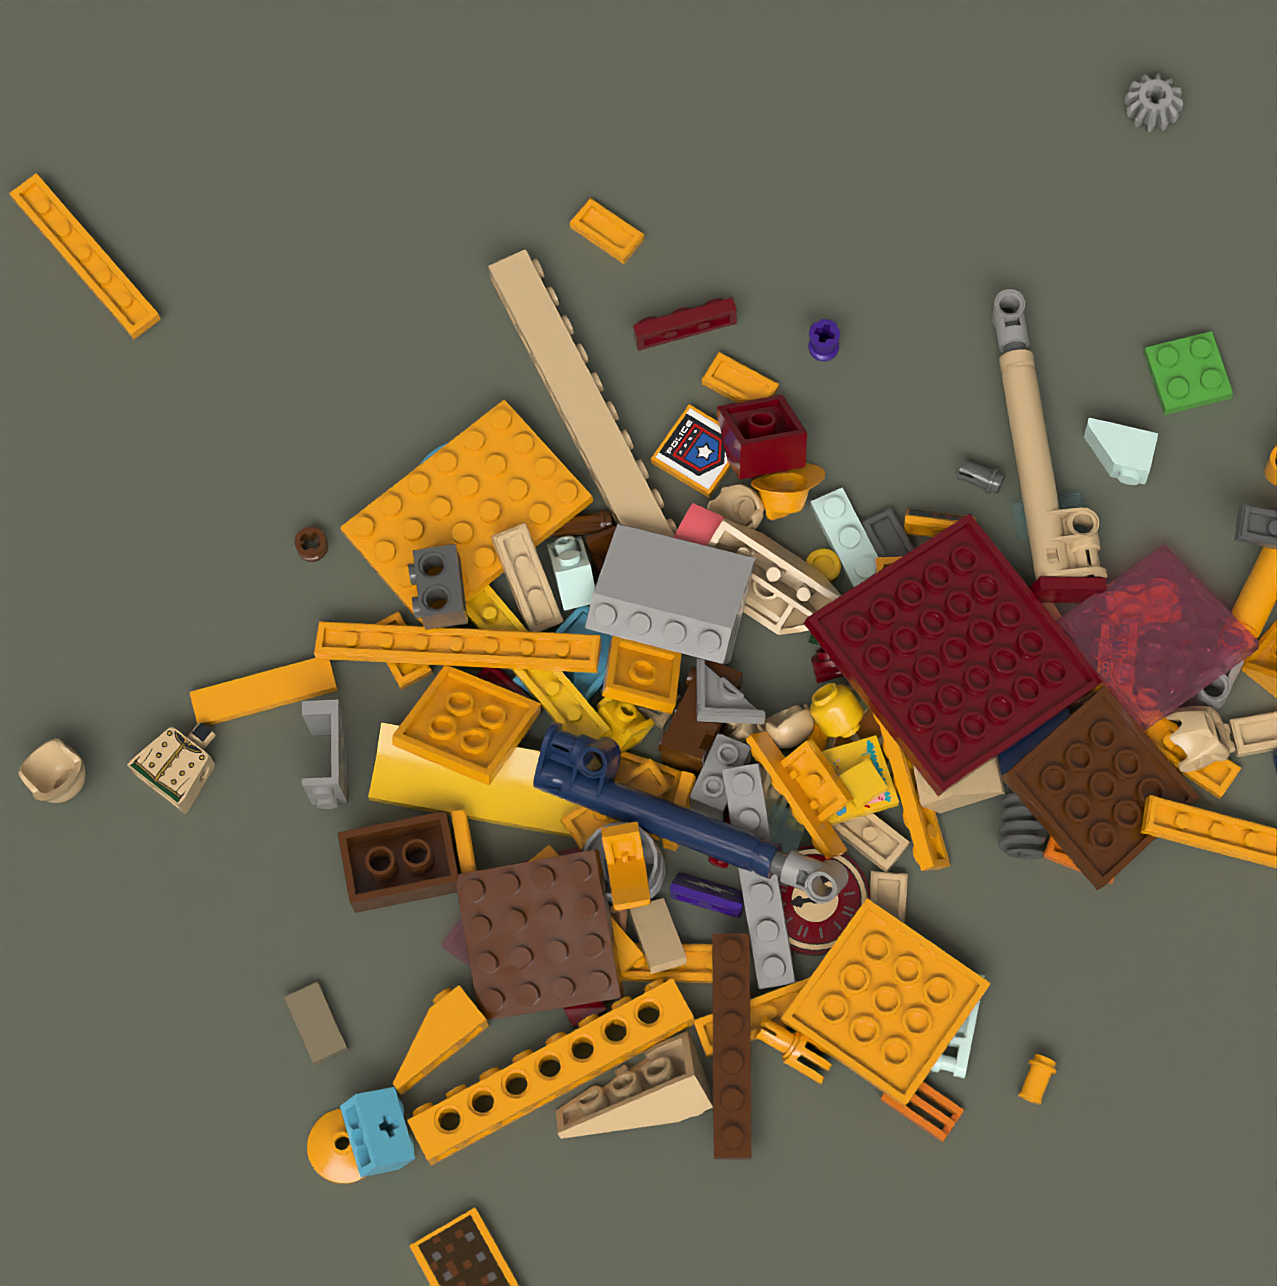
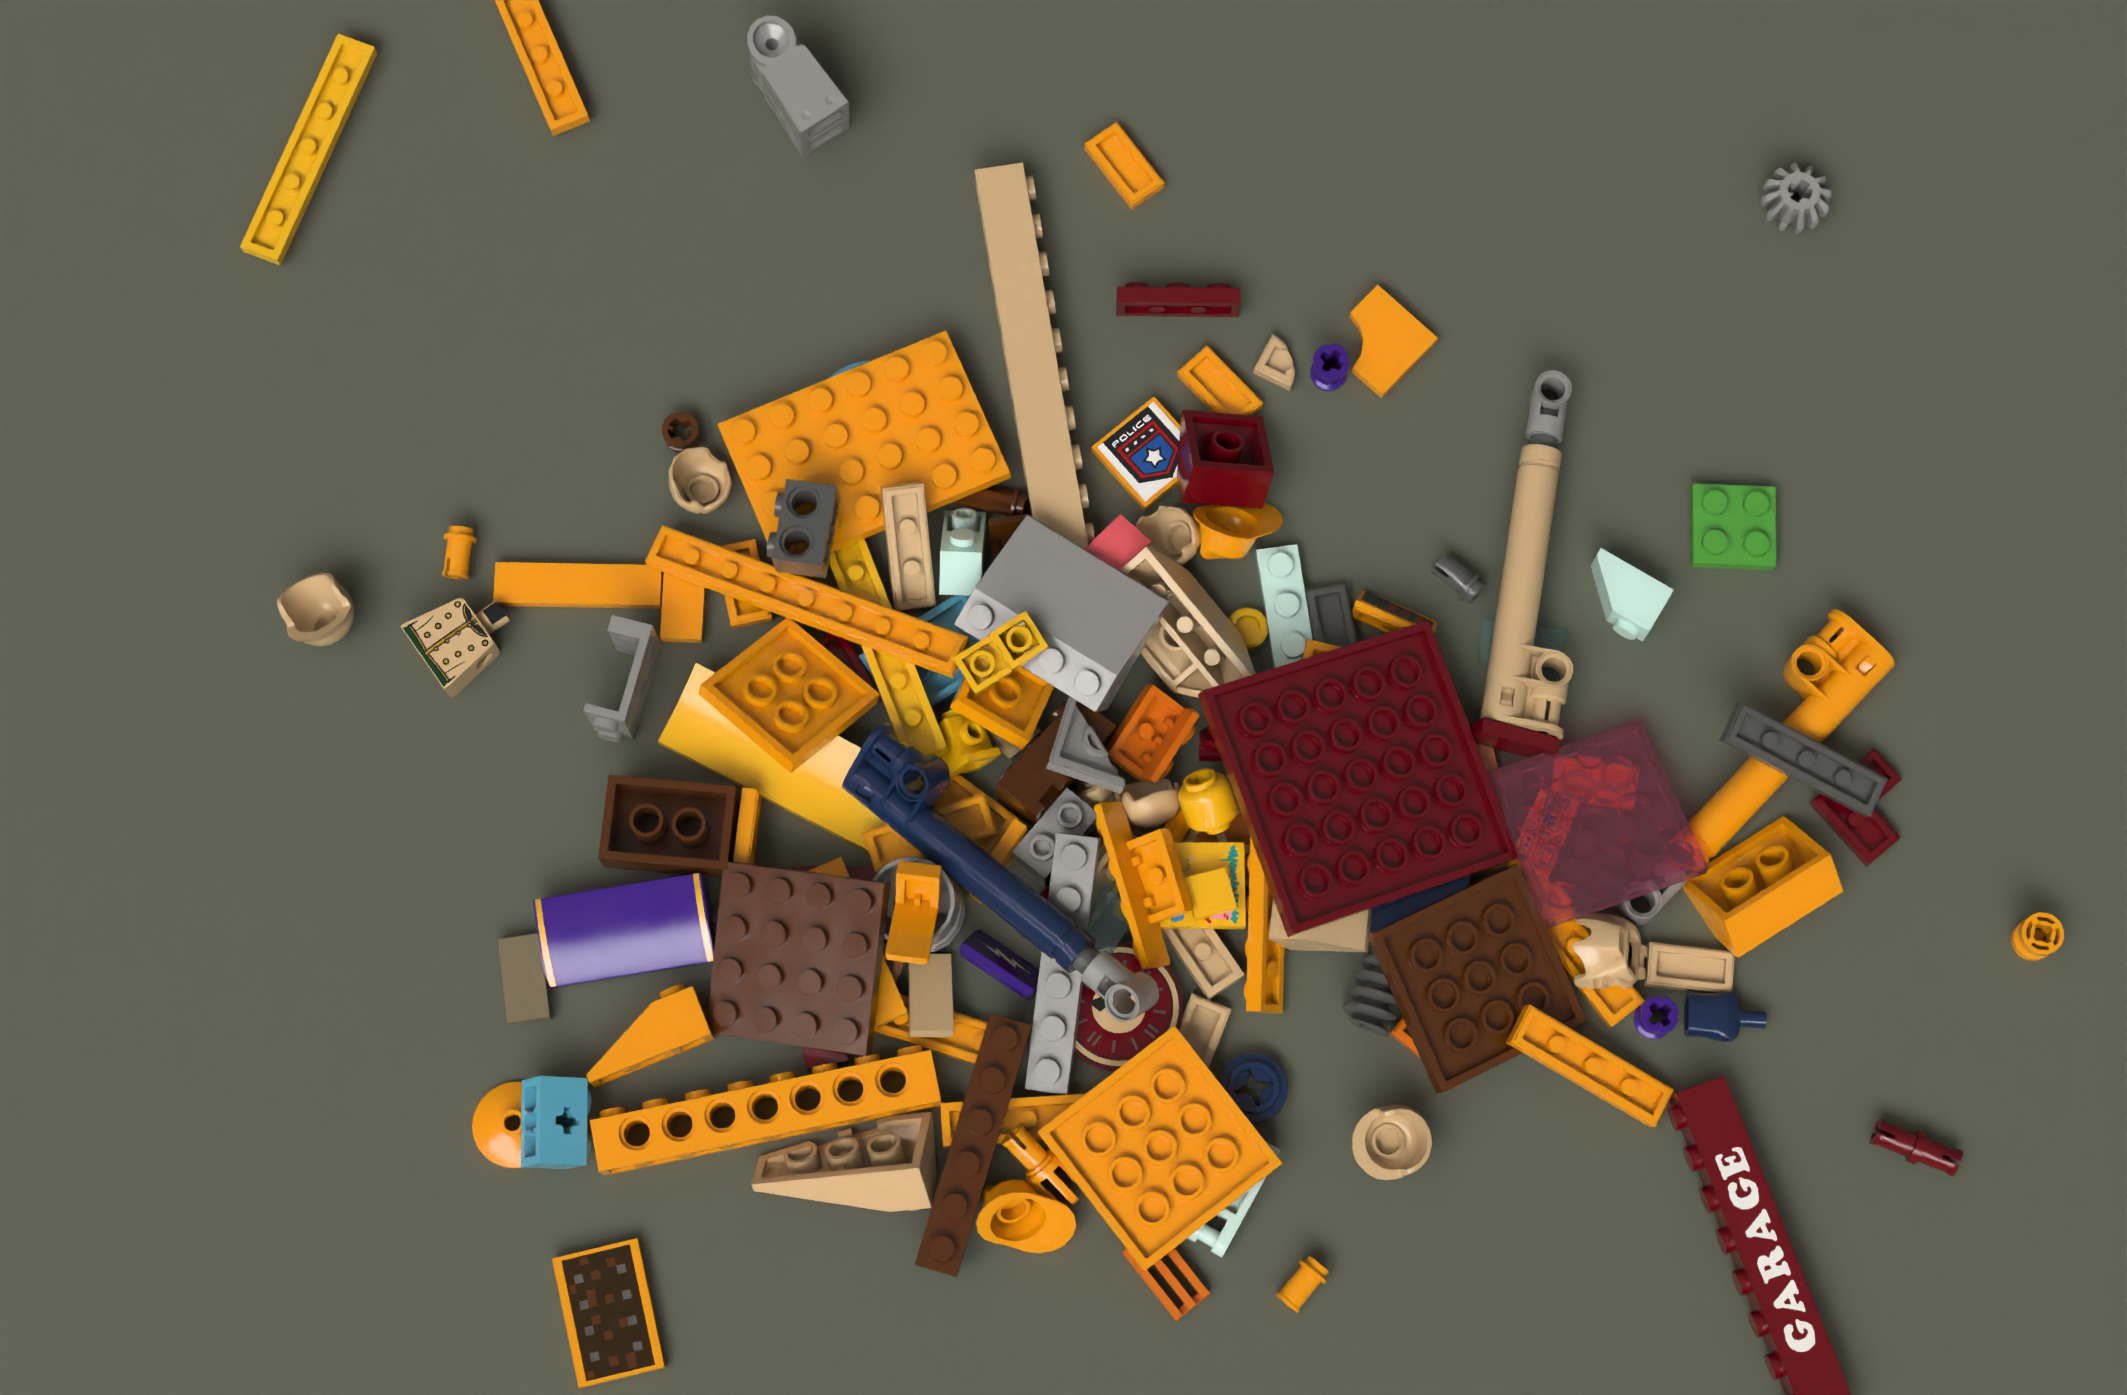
camera: 10 degrees right, 5 degrees up
(156, 693) = (458, 552): none -> light orange pin
(322, 241) = (795, 85): none -> light grey piece
(338, 577) = (699, 480): none -> tan hair
(355, 686) = (682, 611): none -> light orange tile
(388, 958) = (625, 930): none -> dark purple slope
(631, 638) = (1000, 653): none -> yellow slope
(773, 673) = (1151, 735): none -> orange bracket
(779, 351) = (1276, 364): none -> tan tile
(792, 1093) = (1023, 1219): none -> light orange piece
(865, 307) = (1389, 339): none -> light orange tile
(948, 916) = (1264, 1071): none -> dark blue gear
(1074, 940) = (1391, 1142): none -> tan helmet
(1261, 786) = (1651, 1006): none -> dark purple bush

